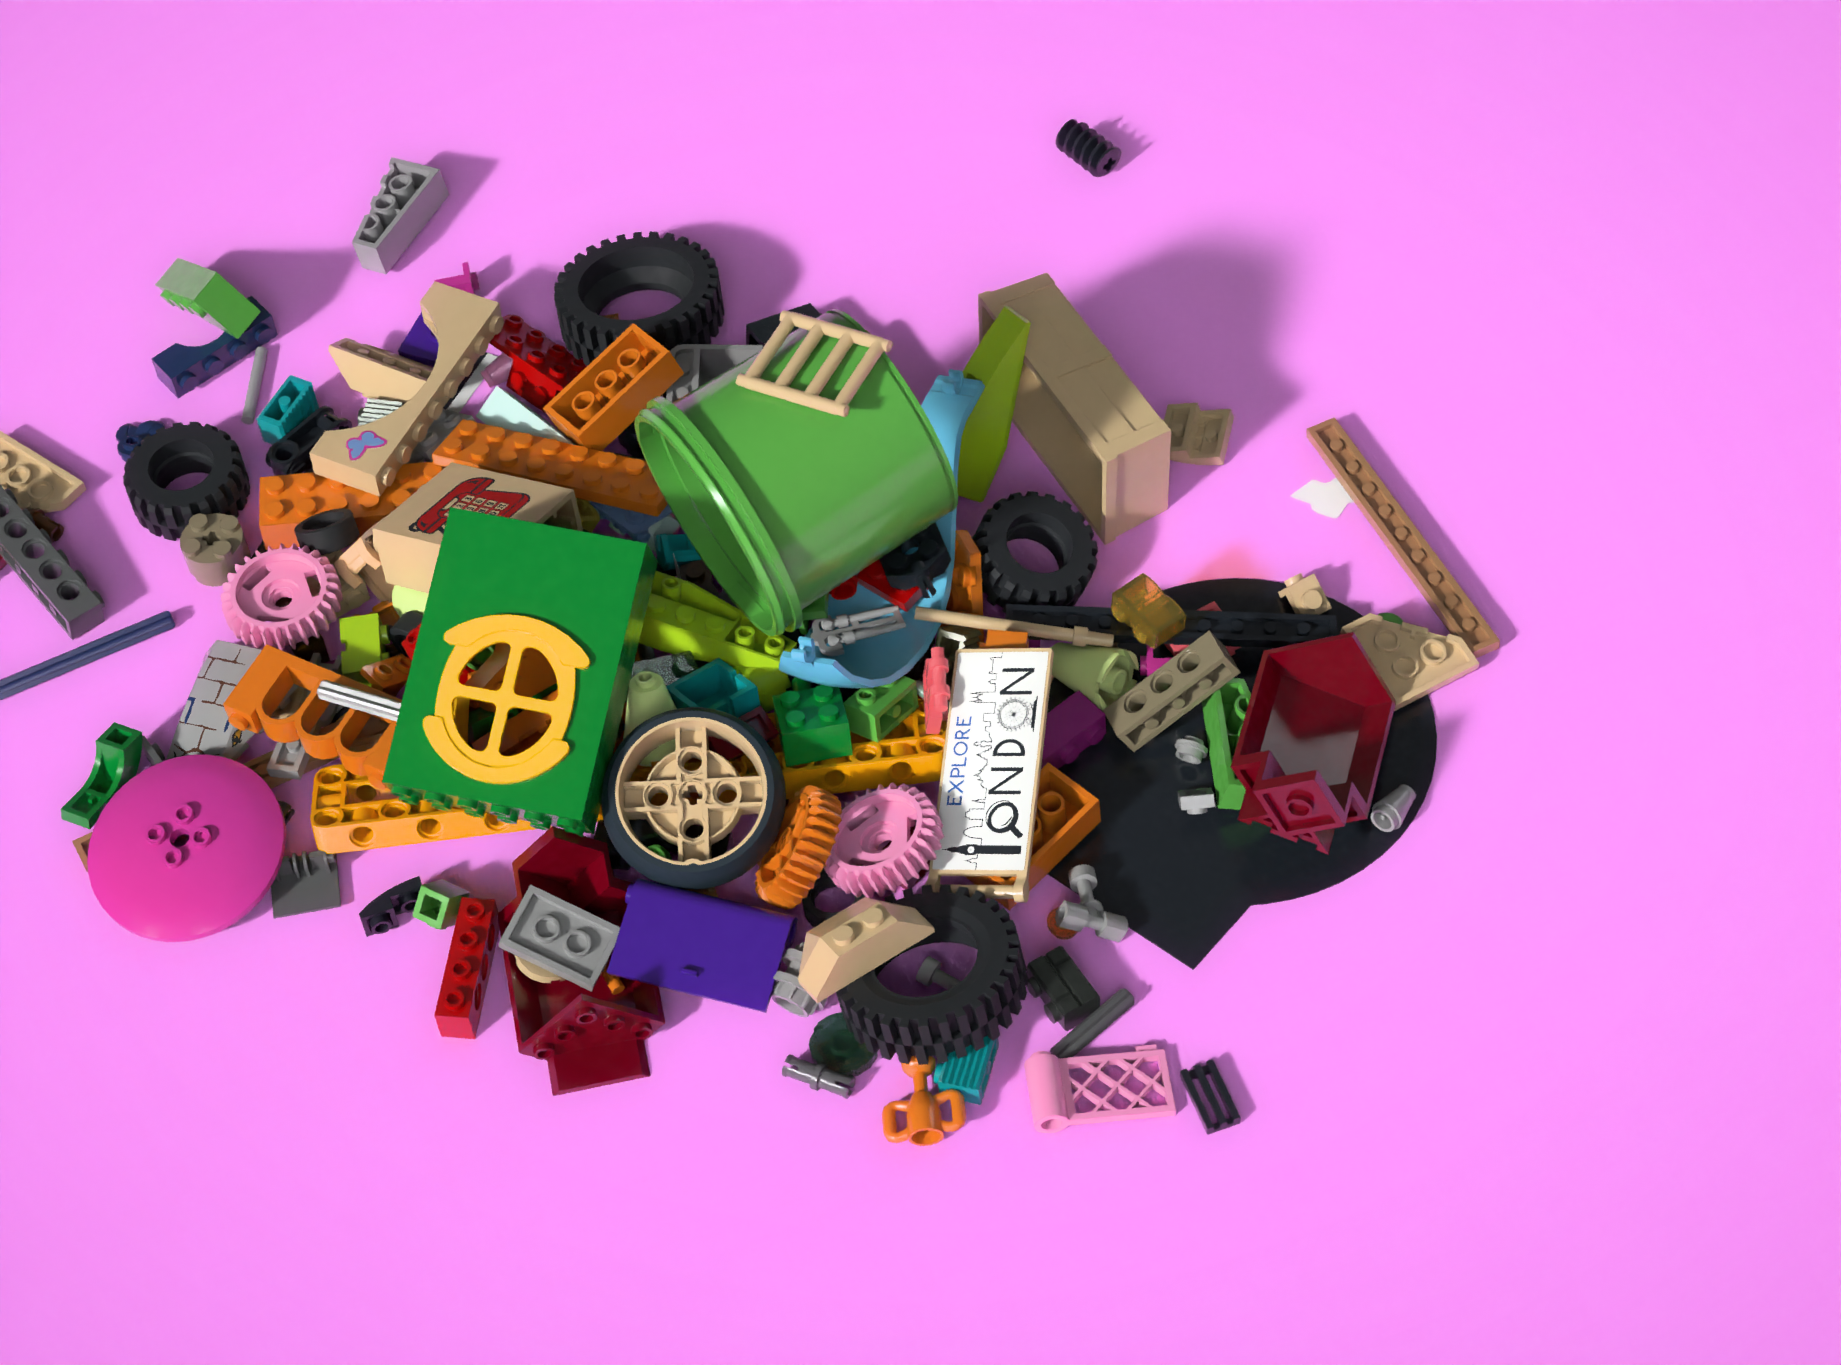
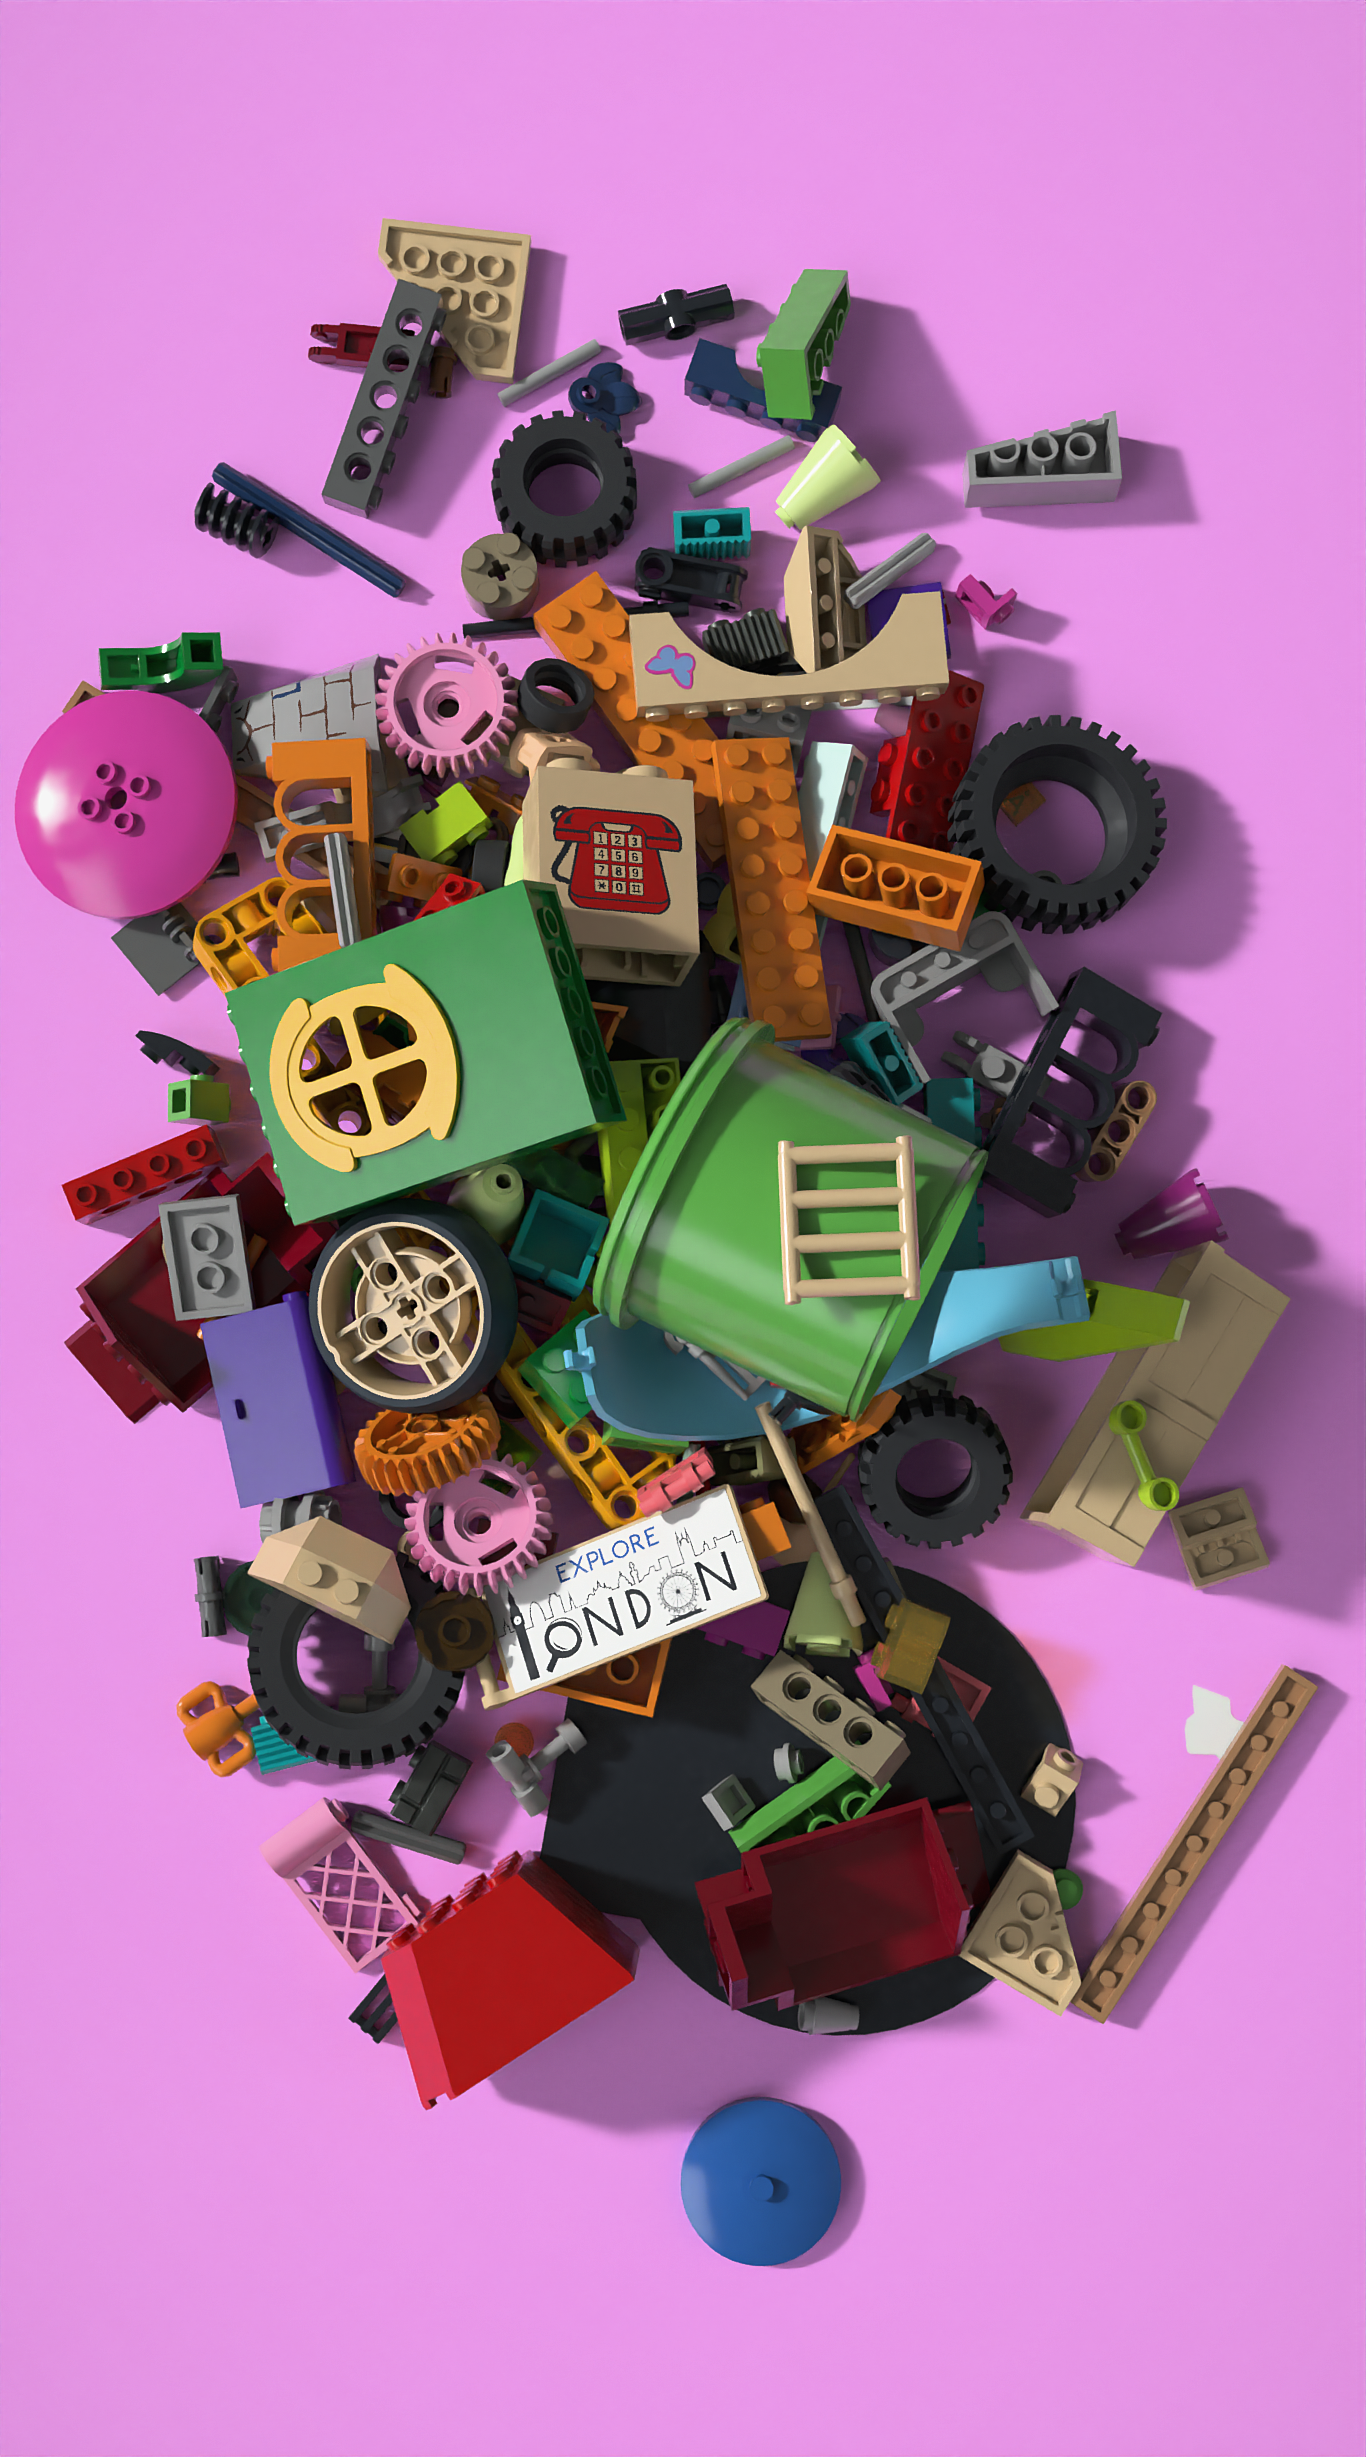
camera: 55 degrees right, 30 degrees up
(38, 691) = (234, 524): none -> black piece
(97, 465) = (549, 372): none -> light grey bar
(121, 373) = (676, 314): none -> black piece
(305, 330) = (825, 480): none -> yellowish green cone
(394, 328) = (889, 570): none -> light grey axle
(952, 342) = (1172, 1220): none -> magenta cone
(952, 888) = (454, 1632): none -> dark brown tile
(1065, 382) = (1155, 1493): none -> lime bar
(1224, 965) = (499, 1972): none -> red windscreen
(1496, 911) = (760, 2181): none -> blue dish

